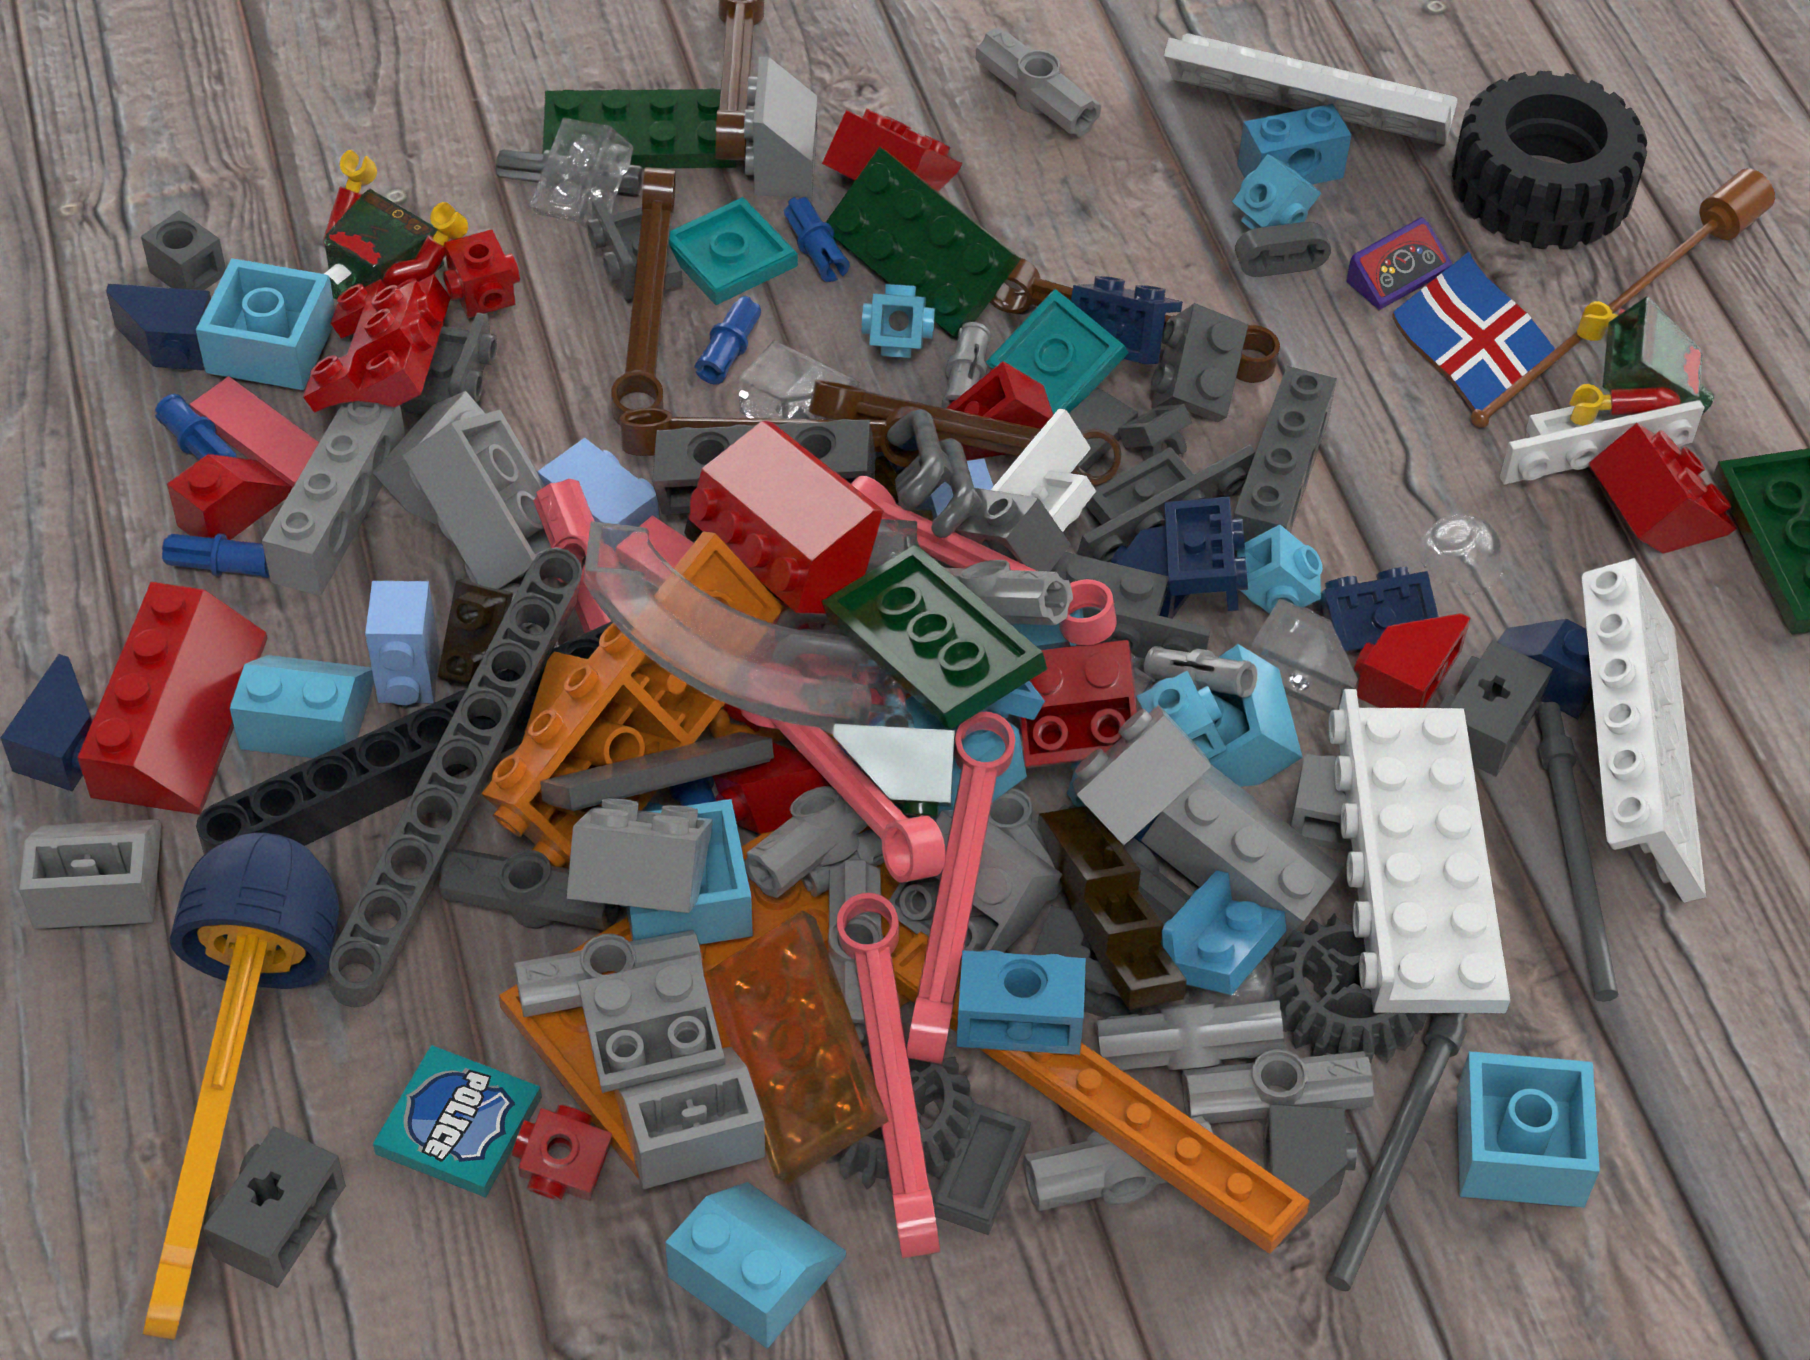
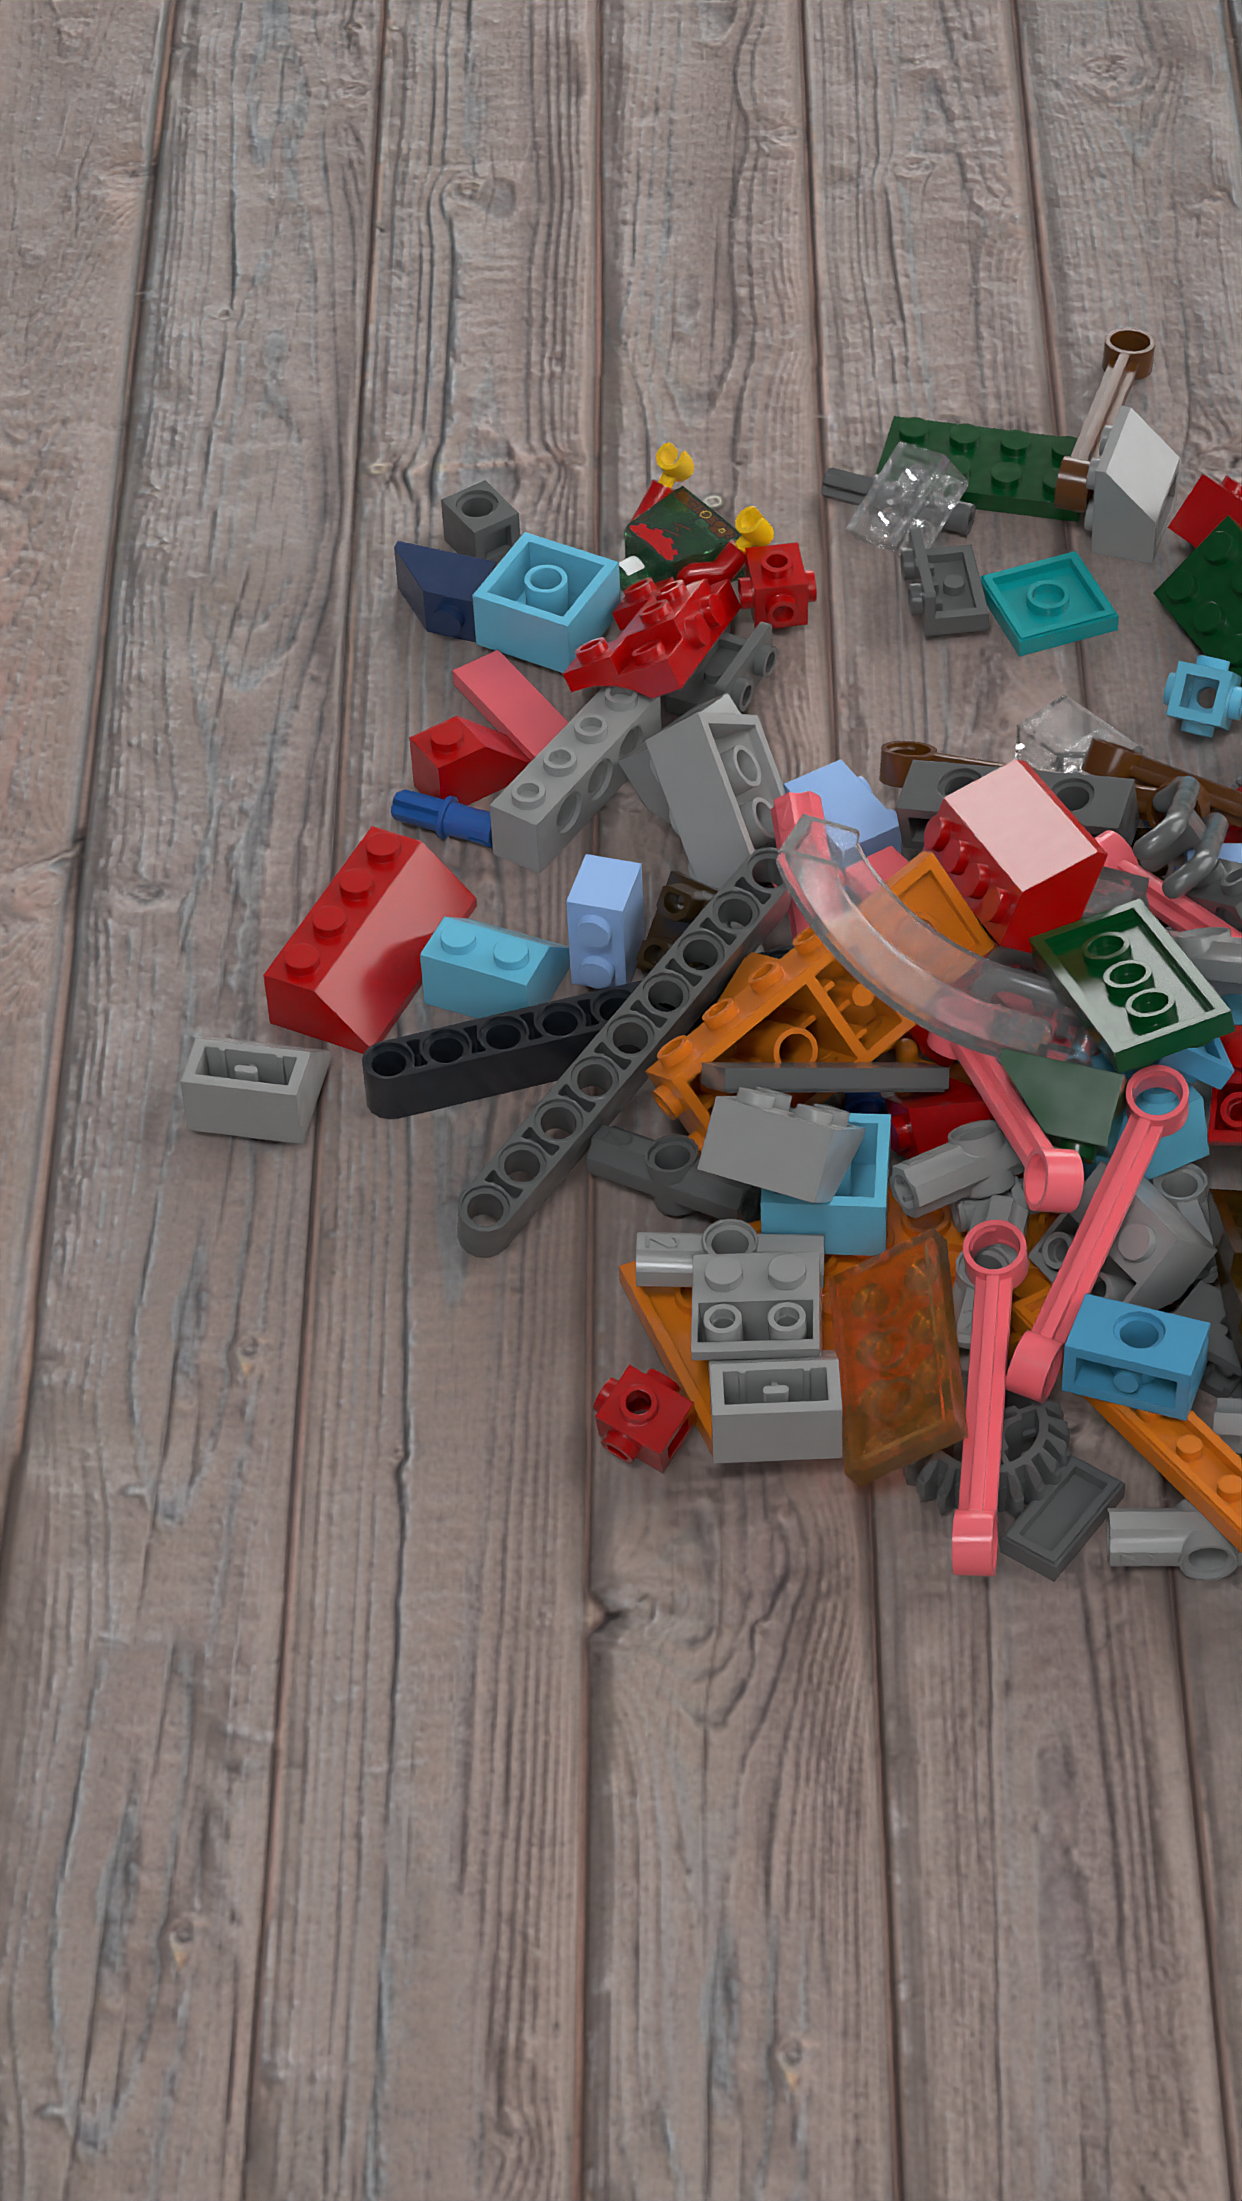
camera: 20 degrees right, 5 degrees down
(50, 729) = (242, 949): dark blue slope -> none
(193, 432) = (447, 694): blue axle -> none
(255, 918) = (397, 1152): piece -> none
(273, 1206) = (356, 1413): dark grey brick -> none
(457, 1120) = (548, 1374): tile -> none
(648, 293) = (977, 545): reddish brown piece -> none
(728, 341) = (1020, 691): blue axle -> none
(750, 1260) = (803, 1551): medium azure slope -> none
(815, 238) = (1142, 604): blue axle -> none

